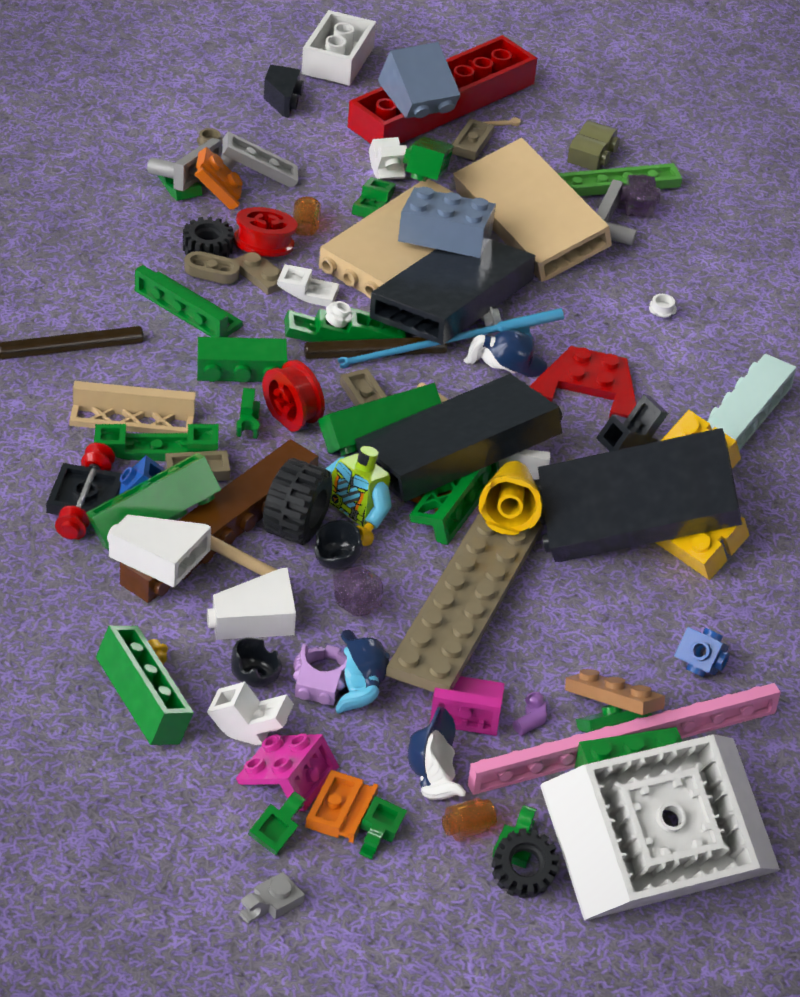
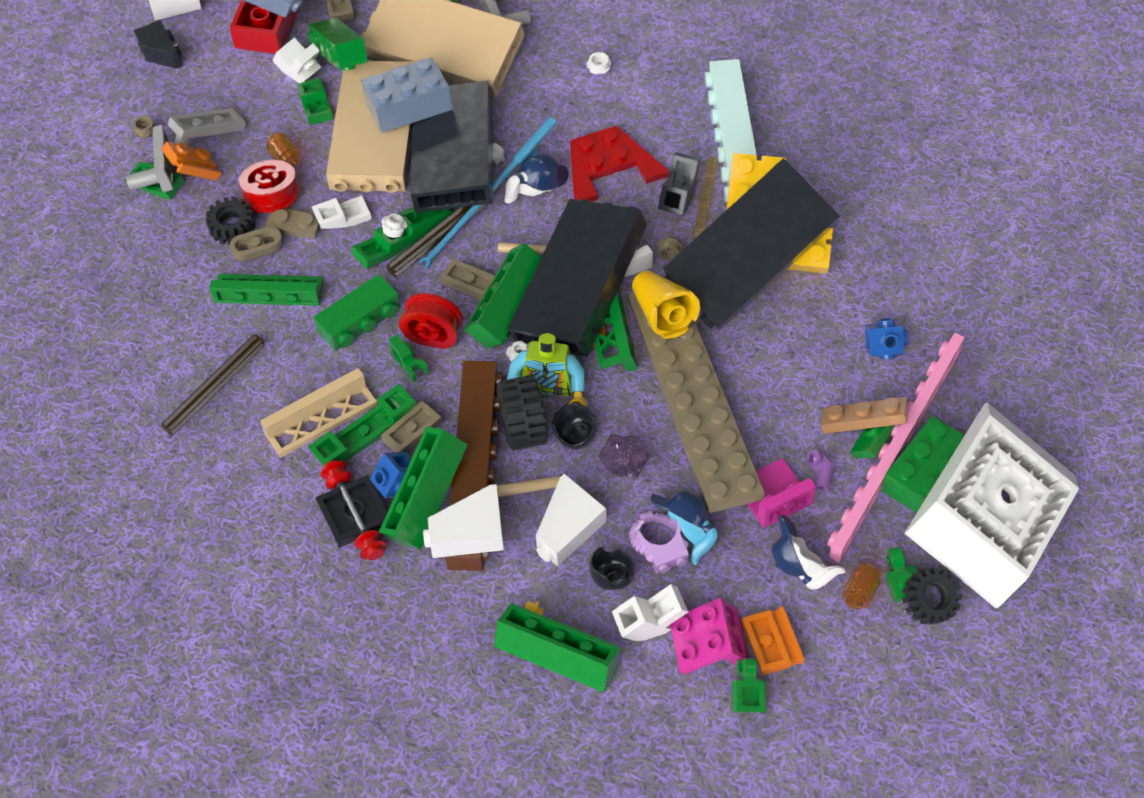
camera: 30 degrees left, 15 degrees up
(274, 896) = (796, 749): light grey plate -> none
(380, 822) = (812, 635): green plate -> none

